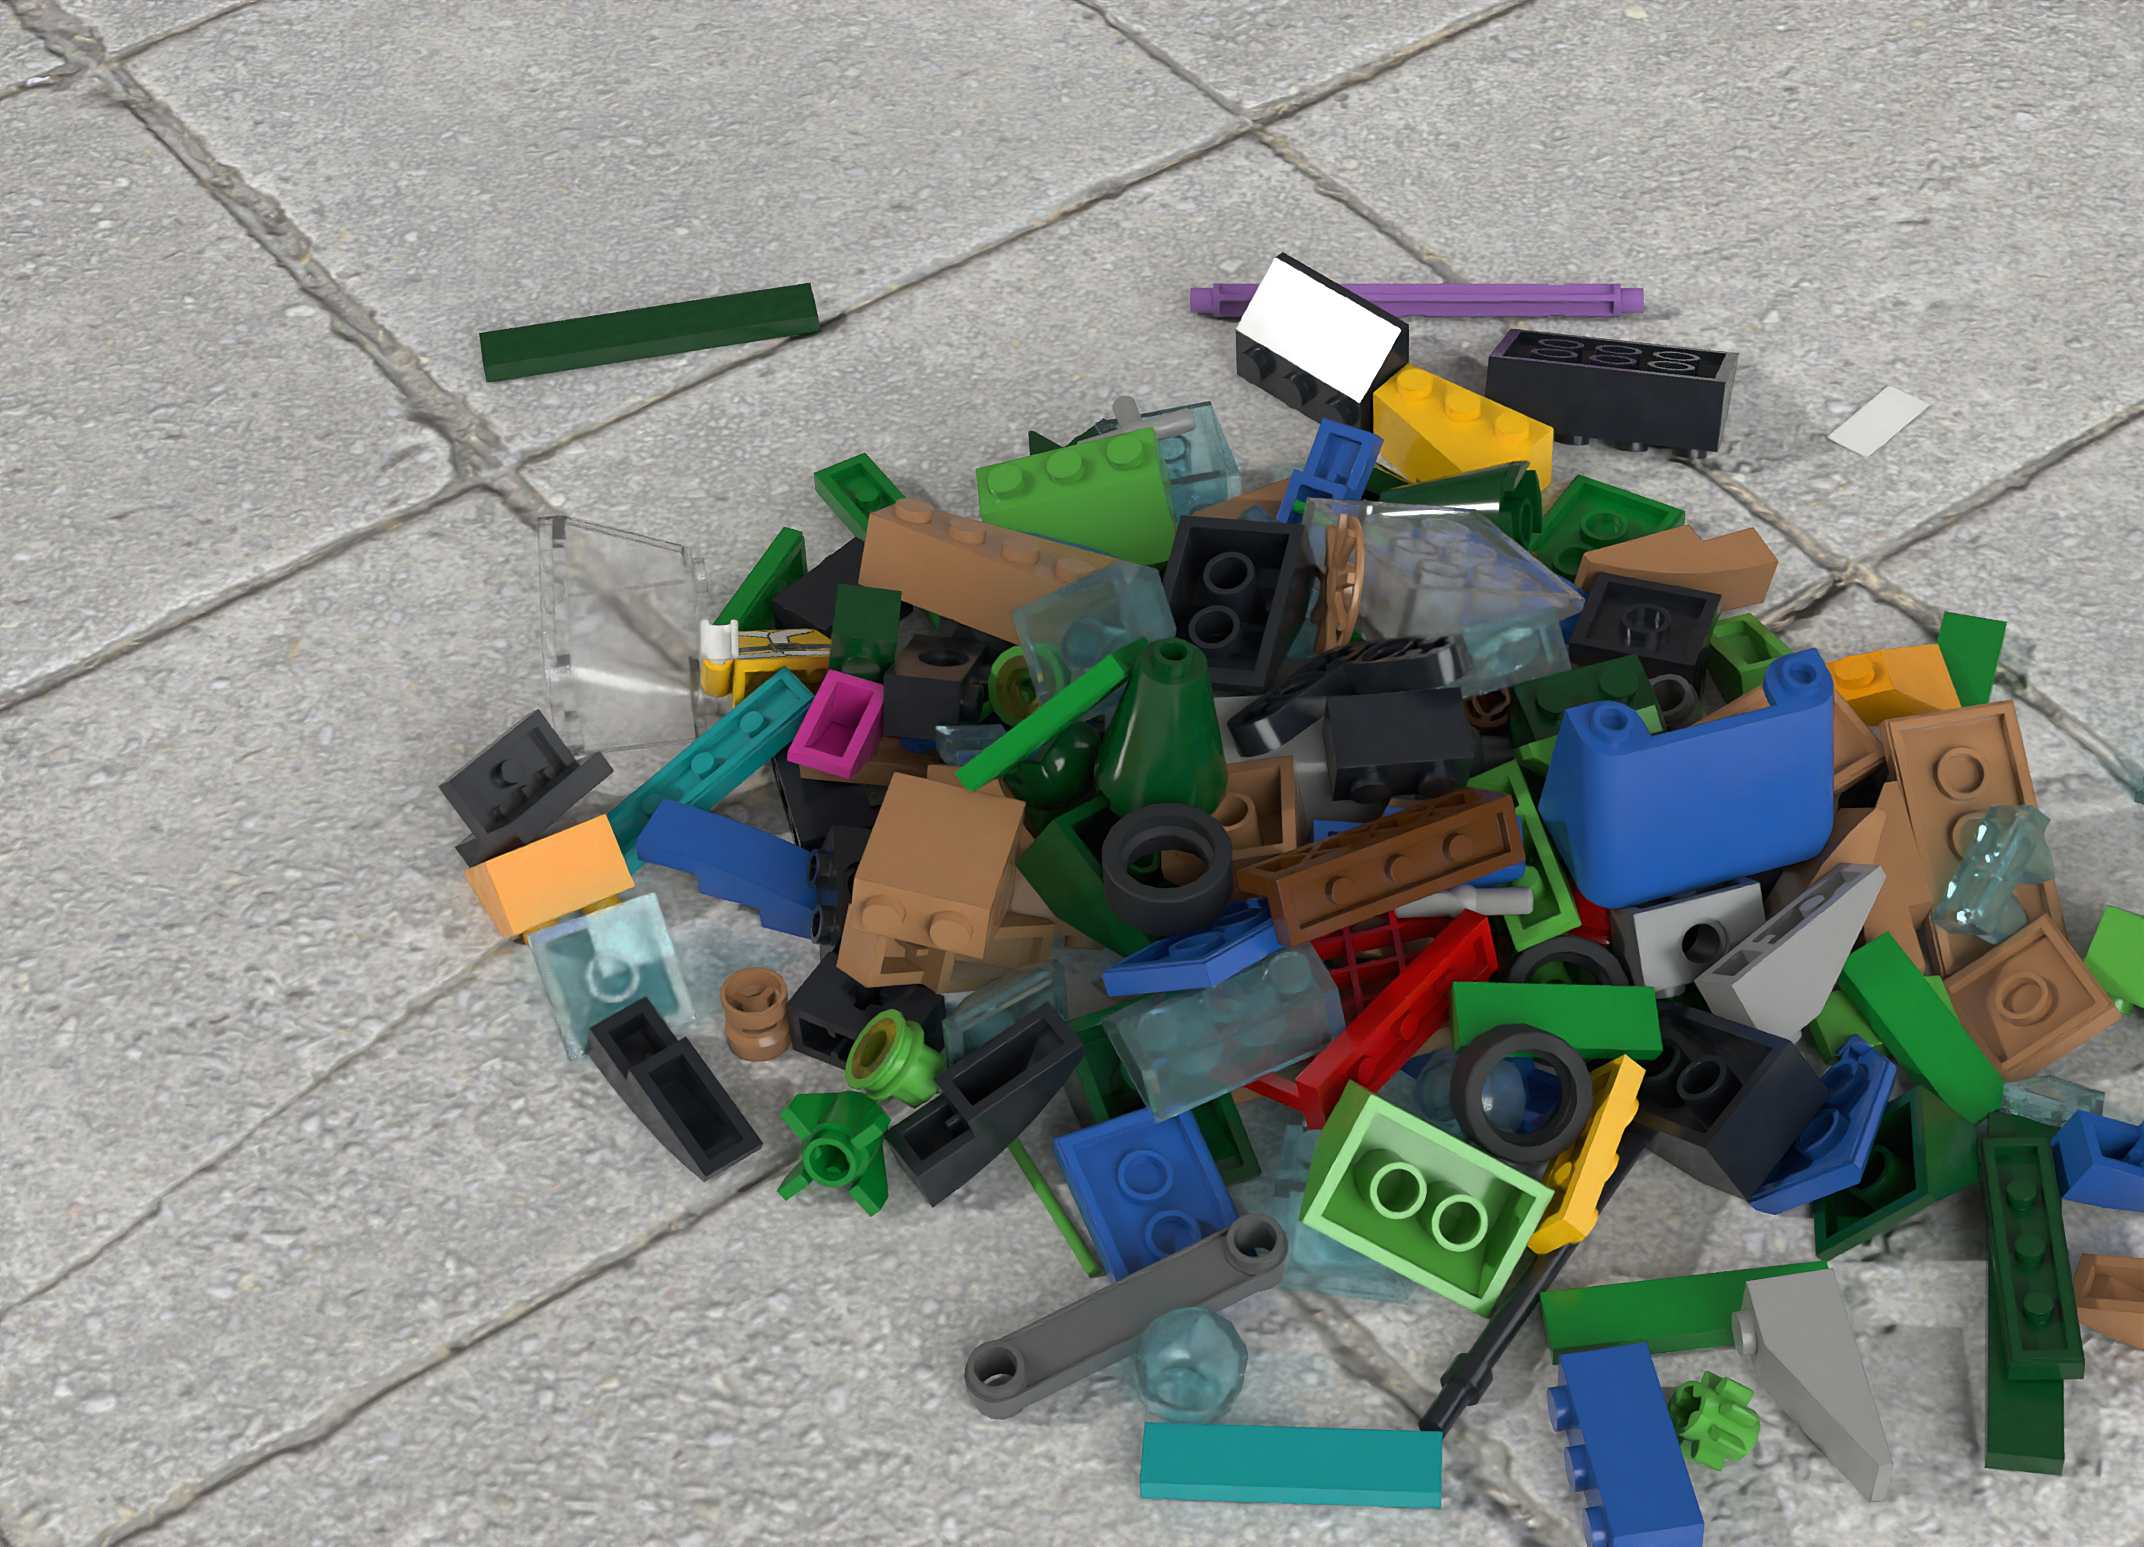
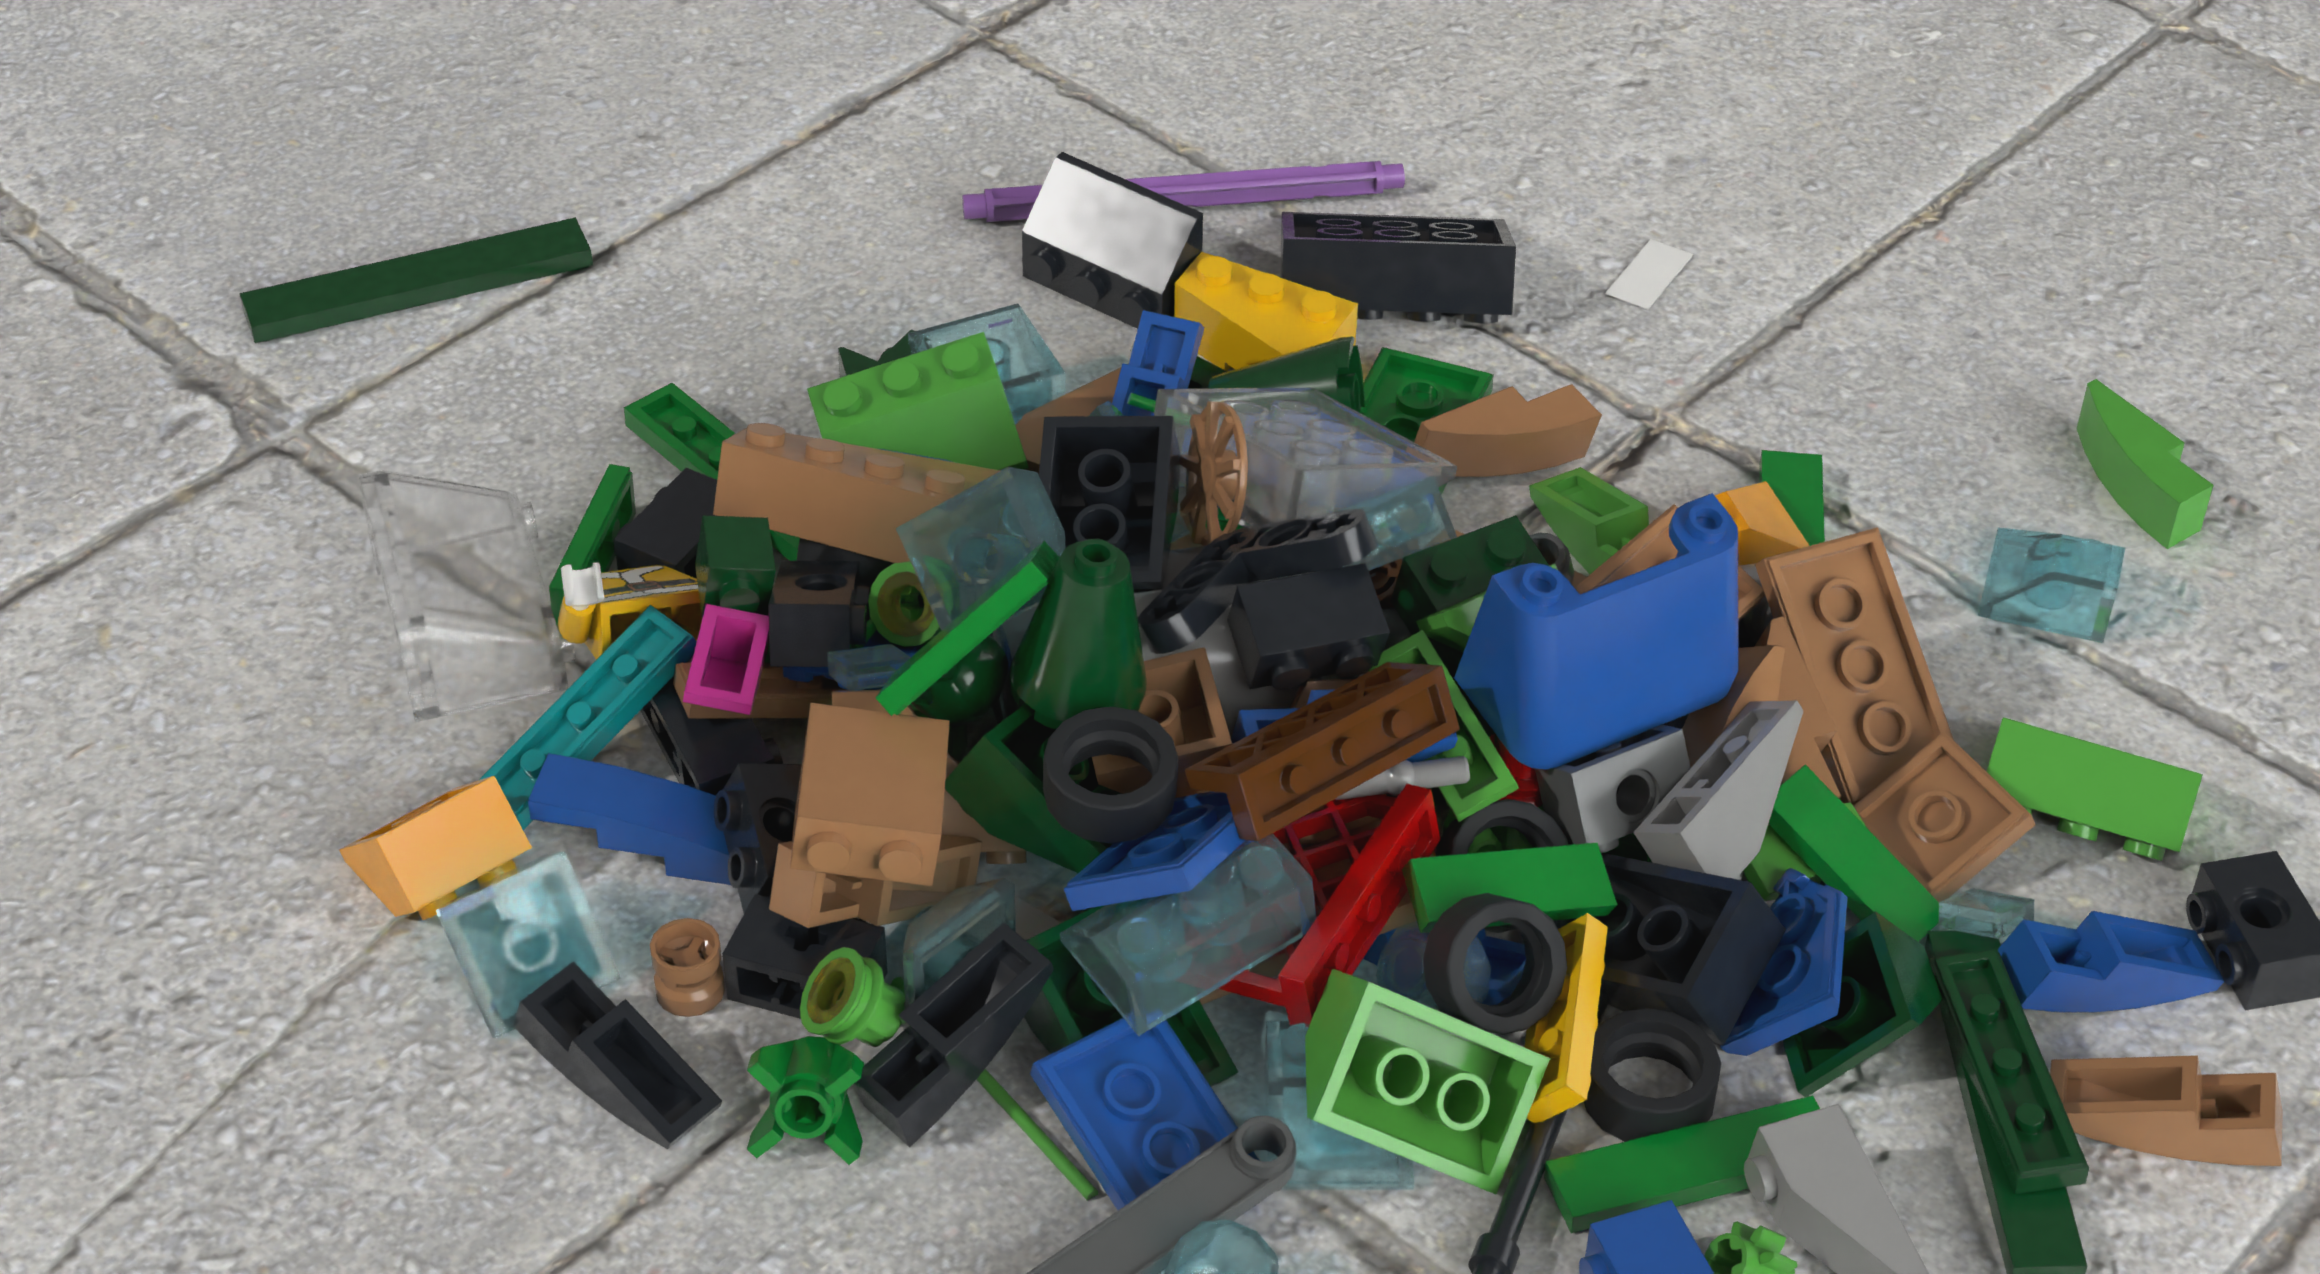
camera: 15 degrees left, 0 degrees up
(519, 788) = (392, 759): black bracket -> none
(1164, 426) = (948, 331): light grey piece -> none
(1656, 620) = (1499, 484): black bracket -> none
(1665, 1181) = (1661, 1037): none -> black tyre
(2001, 855) = (1888, 689): clear light blue tile -> none

